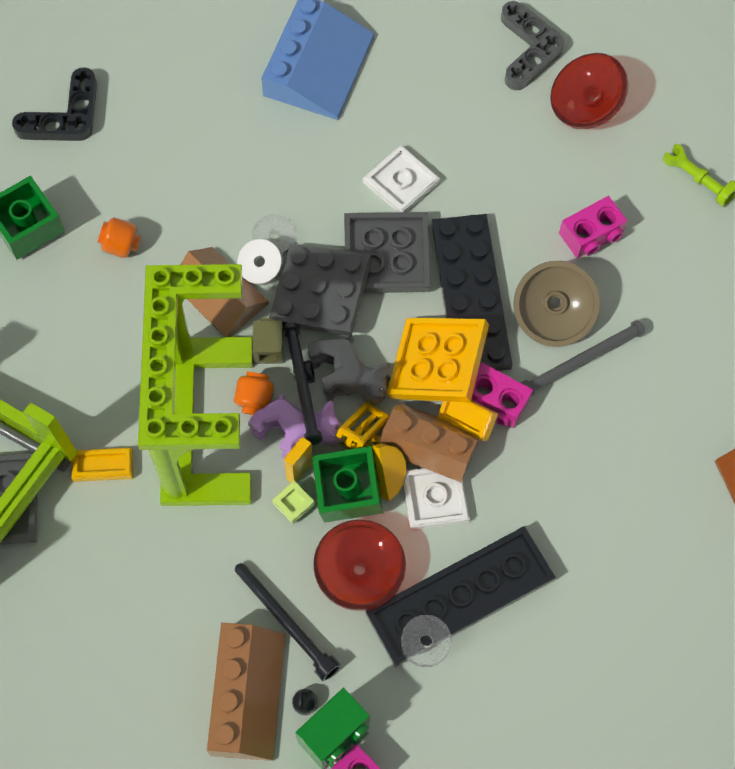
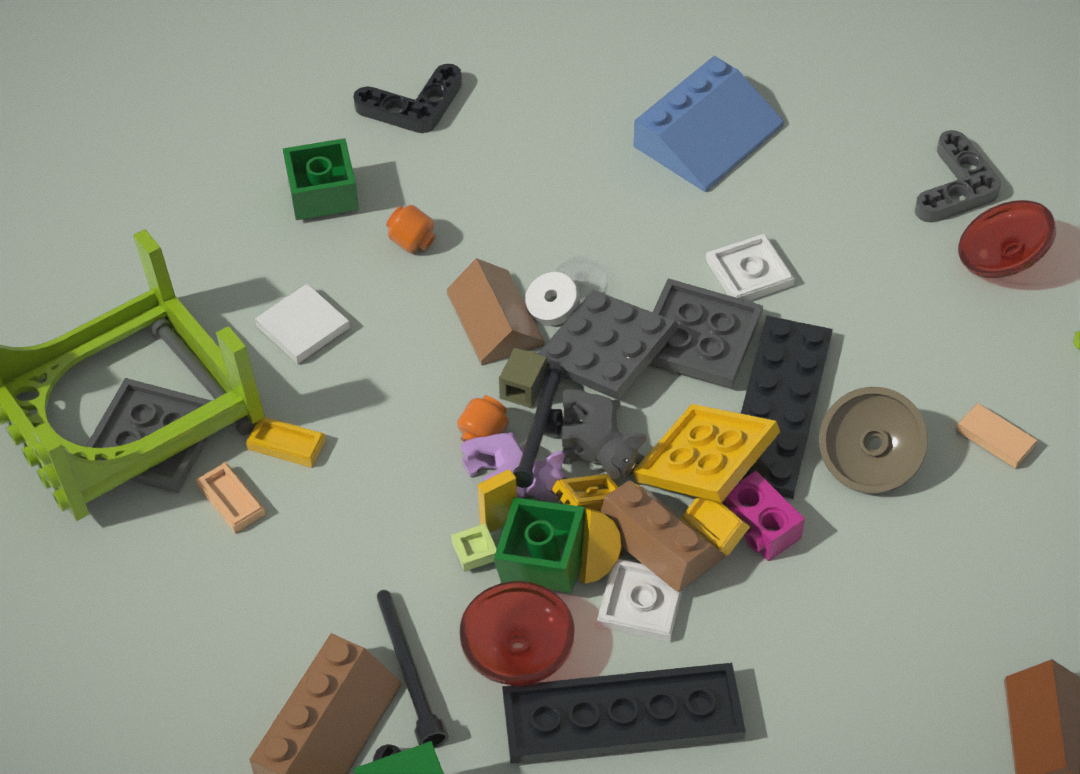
camera: 25 degrees right, 15 degrees down
(66, 354) = (302, 323): none -> white tile
(80, 530) = (230, 497): none -> light nougat tile
(168, 380) = (354, 384): lime arch -> none
(426, 626) = (551, 757): clear piece -> none
(589, 223) = (954, 379): dark pink brick -> none
(635, 329) = (961, 503): dark grey bar -> none
(638, 262) = (996, 435): none -> light nougat tile

